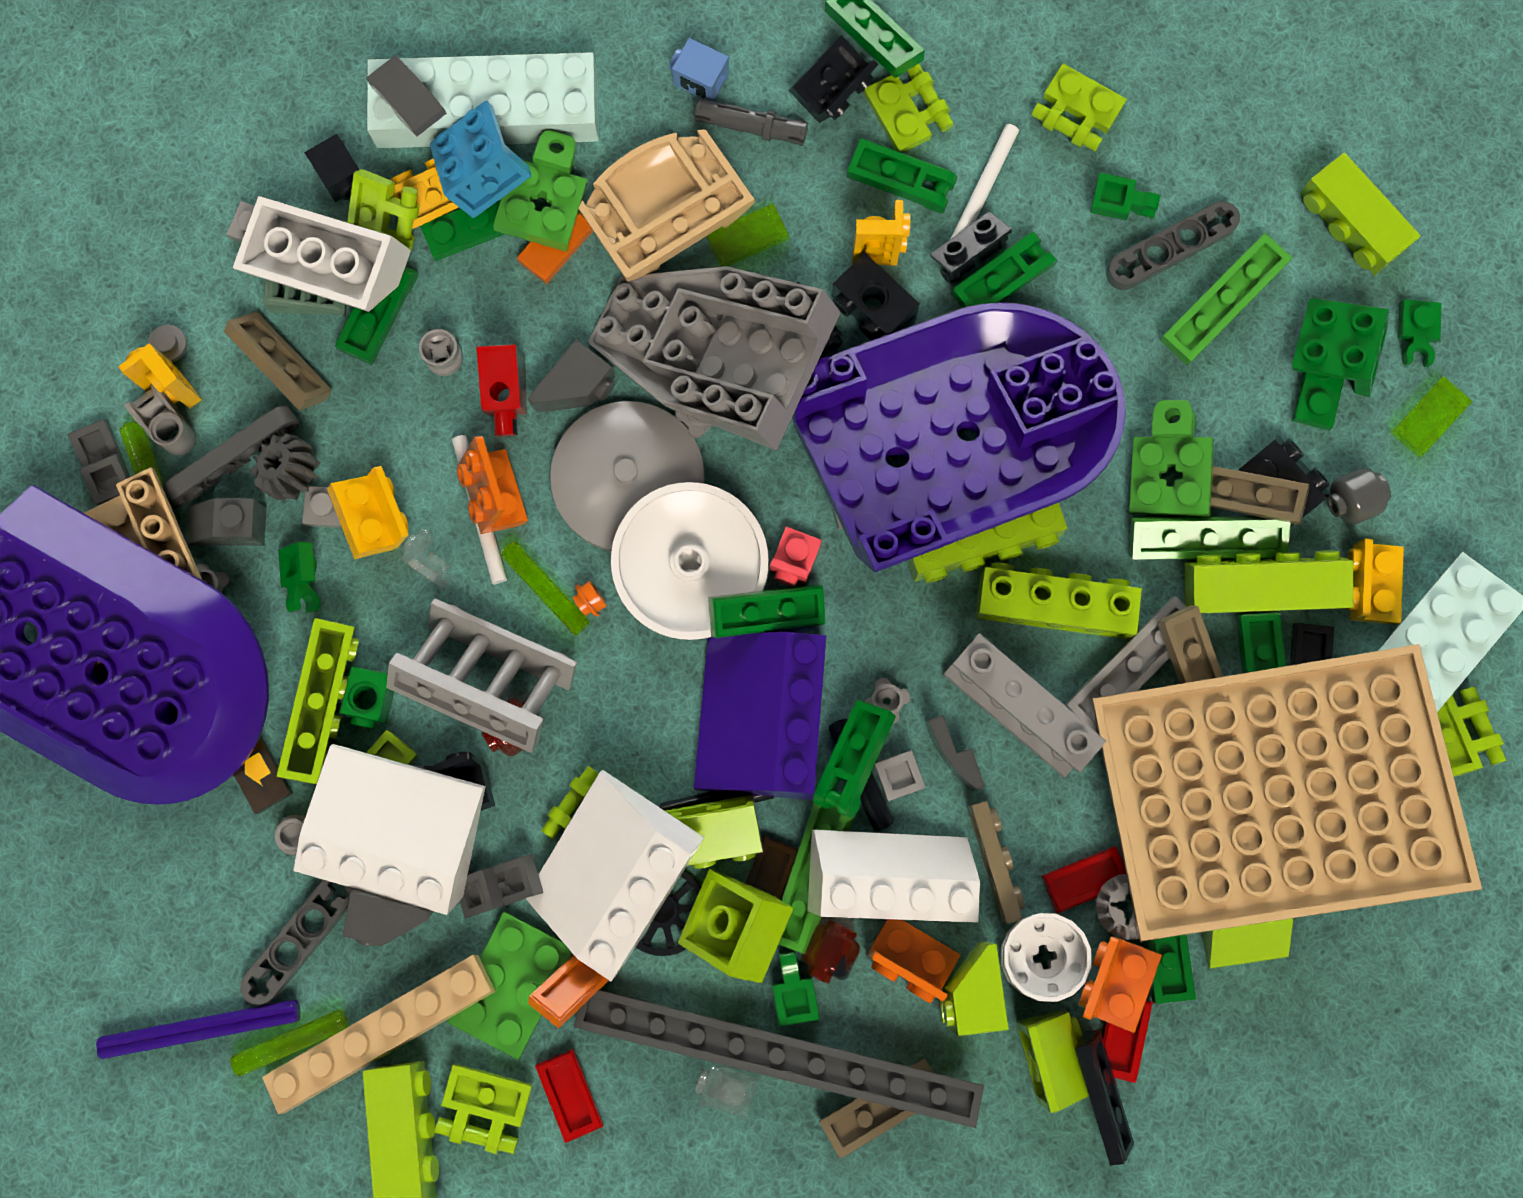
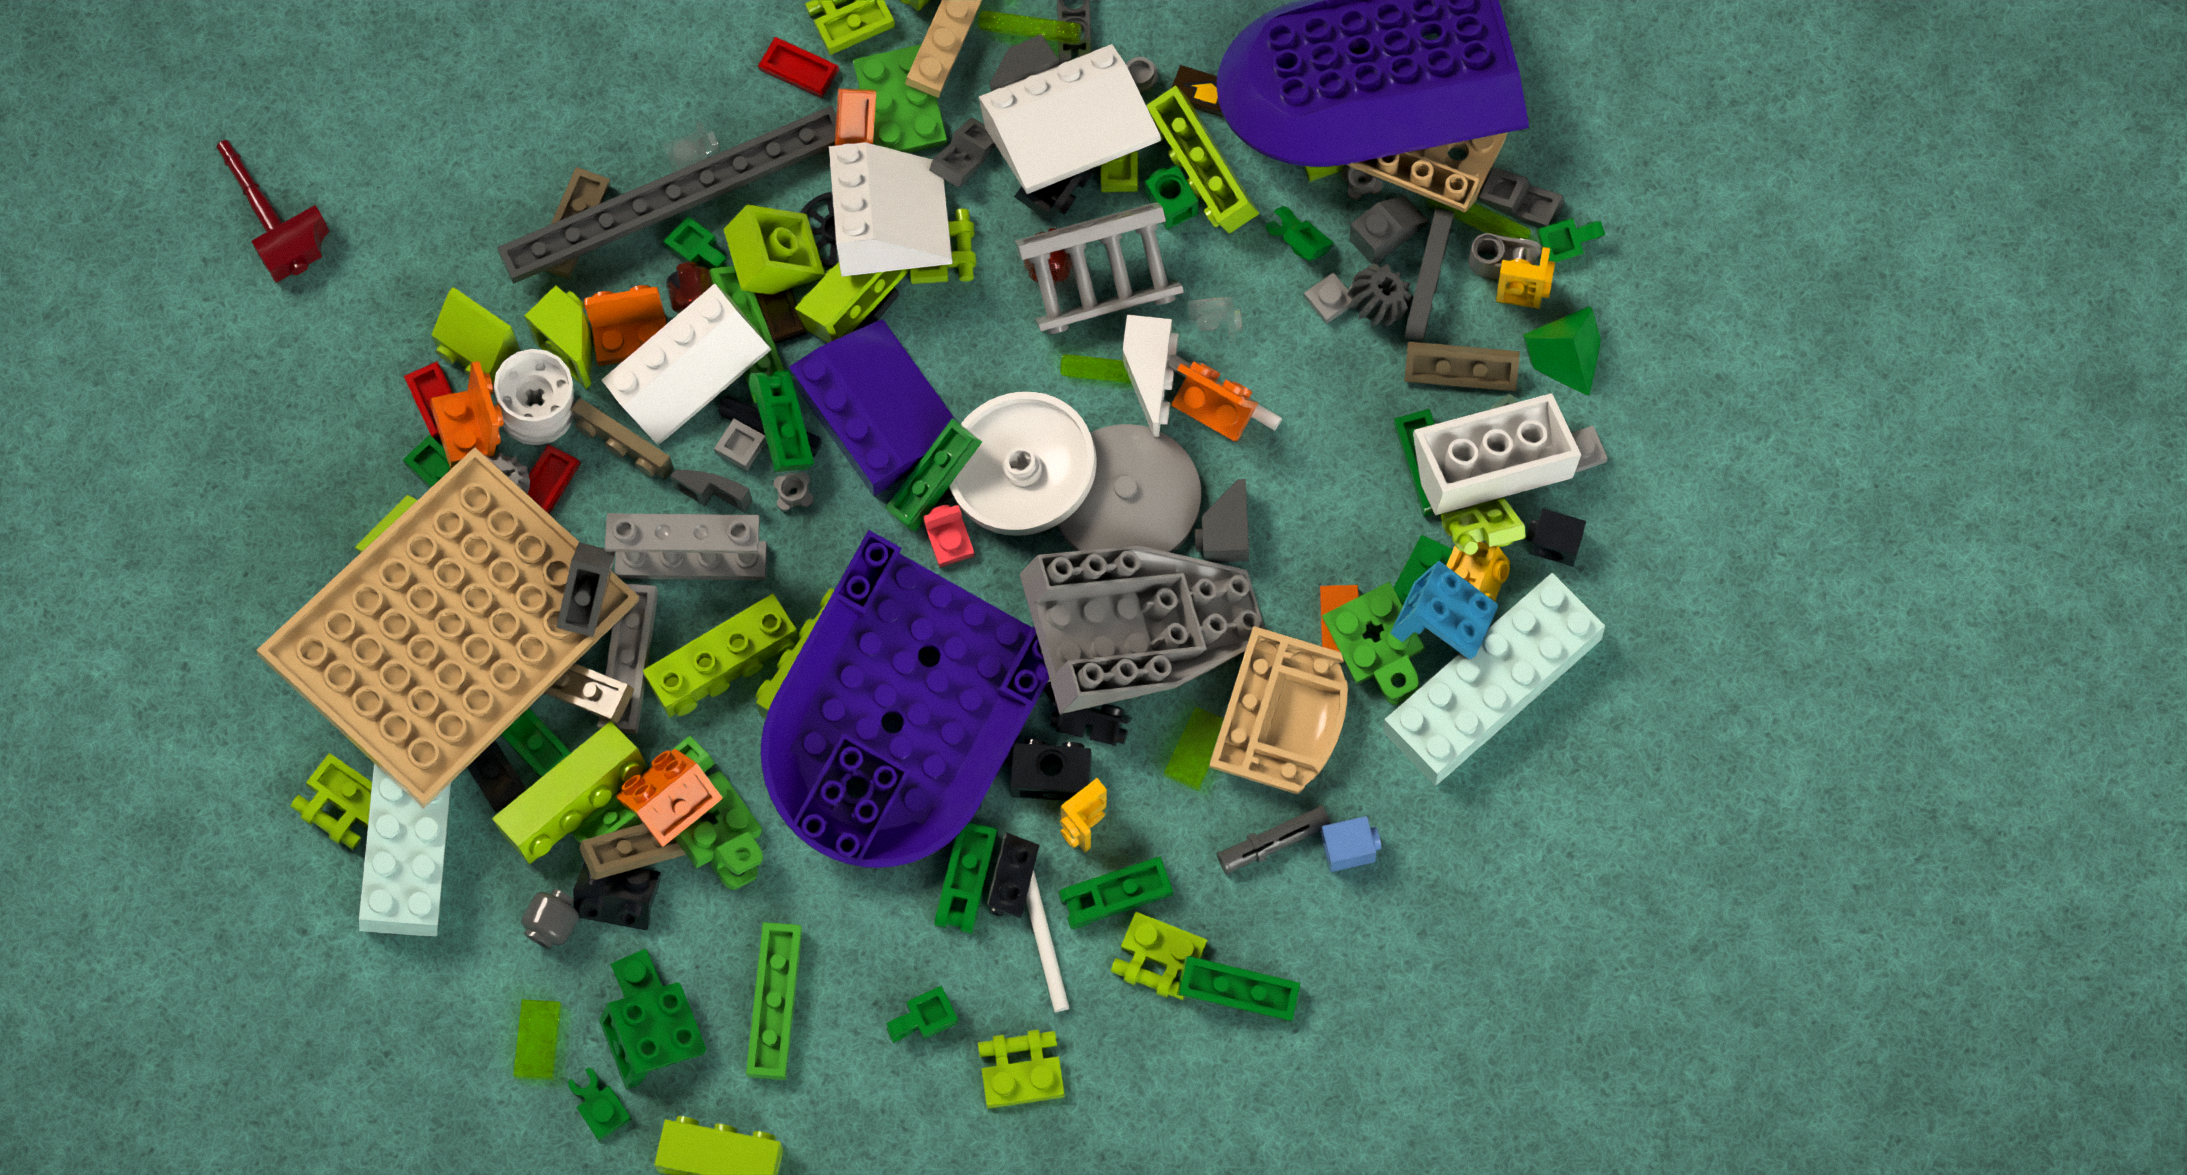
camera: 145 degrees right, 10 degrees down
(99, 397) = (1566, 239): none -> green plate
(169, 341) = (1555, 309): light grey plate -> none
(188, 309) = (1566, 349): none -> green slope
(345, 956) = (1029, 26): none -> clear neon green axle
(369, 513) = (1289, 314): yellow bracket -> none
(406, 95) = (1540, 609): dark grey slope -> none
(435, 346) = (1346, 459): light grey wheel -> none
(501, 369) = (1275, 477): red torso -> none
(516, 559) = (1146, 359): none -> white slope
(589, 599) = (1075, 382): orange plate -> none
(832, 80) = (1235, 923): black bracket -> none
(1104, 1097) = (420, 343): black tile -> none
(1141, 728) = (585, 589): none -> dark grey slope
(1171, 244) = (847, 1012): dark grey beam -> none
(1200, 507) = (669, 795): none -> orange bracket
(1376, 582) = (486, 869): yellow bracket -> none

